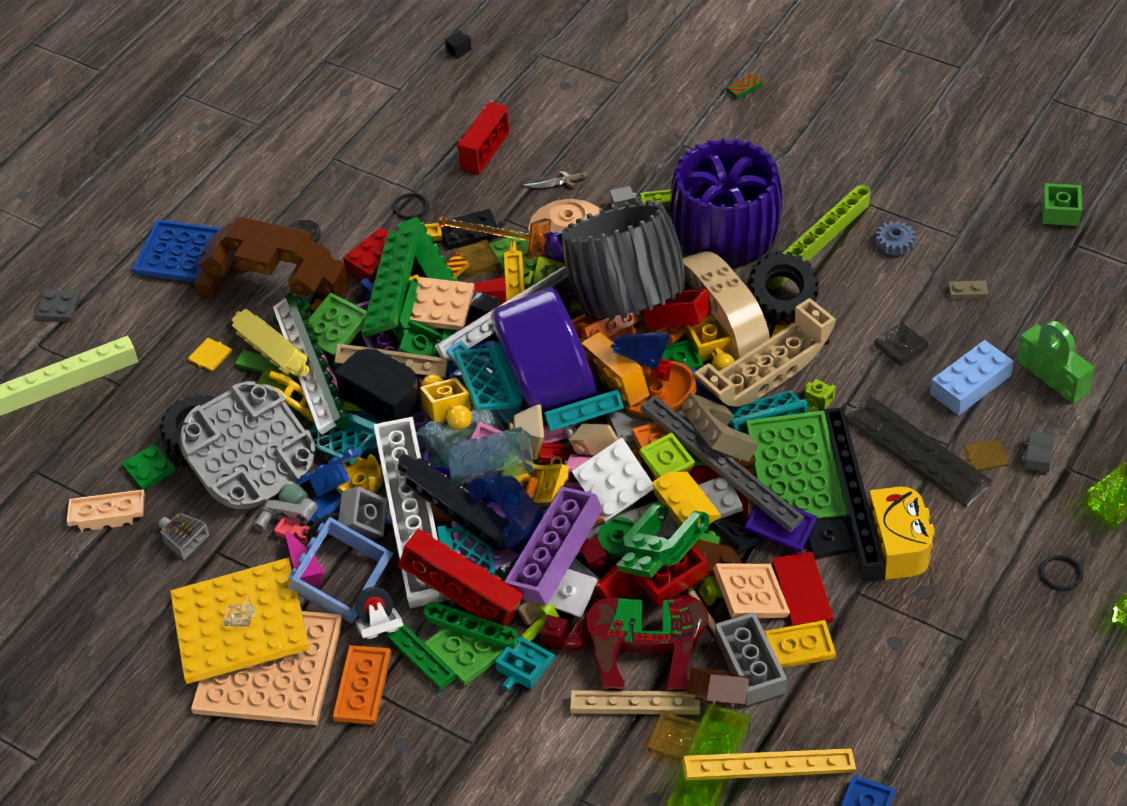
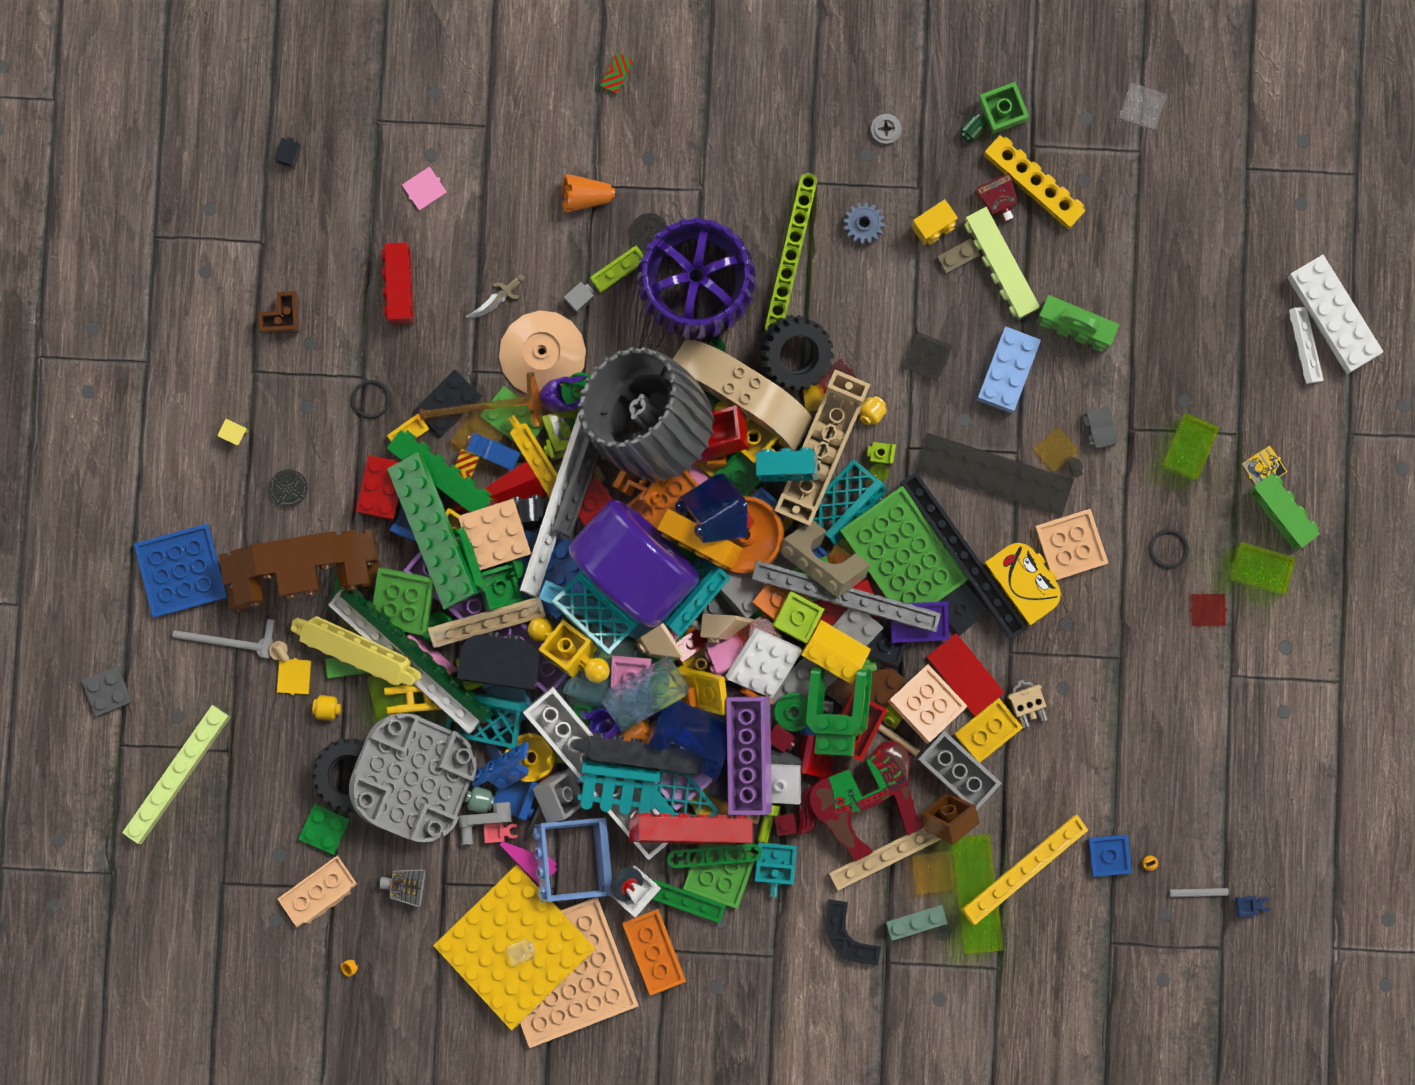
camera: 30 degrees left, 35 degrees up
(86, 575) = (349, 967): none -> light orange hinge
(199, 325) = (262, 647): none -> light grey bar
(211, 329) = (278, 651): none -> tan plate
(217, 381) = (326, 708): none -> yellow head
(287, 179) = (232, 432): none -> light yellow panel
(379, 129) = (285, 318): none -> reddish brown brick
(412, 509) = (629, 775): none -> teal fence
(481, 262) = (493, 451): none -> blue piece
(546, 101) = (424, 188): none -> bright pink piece
(548, 759) = (842, 941): none -> black plate
(631, 771) = (916, 922): none -> sand green brick
(669, 137) = (584, 193): none -> orange cone
(725, 348) = (786, 465): none -> teal brick
(828, 360) = (872, 410): none -> yellow head
(852, 634) = (1028, 695): none -> tan piece
(946, 184) = (892, 123): none -> light grey gear
(958, 252) = (934, 222): none -> yellow brick
(964, 528) = (1071, 544): none -> light nougat plate
(998, 468) = (1074, 466): none -> clear smoke plate
(1005, 304) = (1002, 264): none -> yellowish green brick
(1025, 260) = (998, 197): none -> torso
(1027, 211) = (973, 128): none -> dark green brick
(1065, 263) = (1023, 180): none -> yellow brick
(1078, 637) = (1208, 609): none -> clear red piece

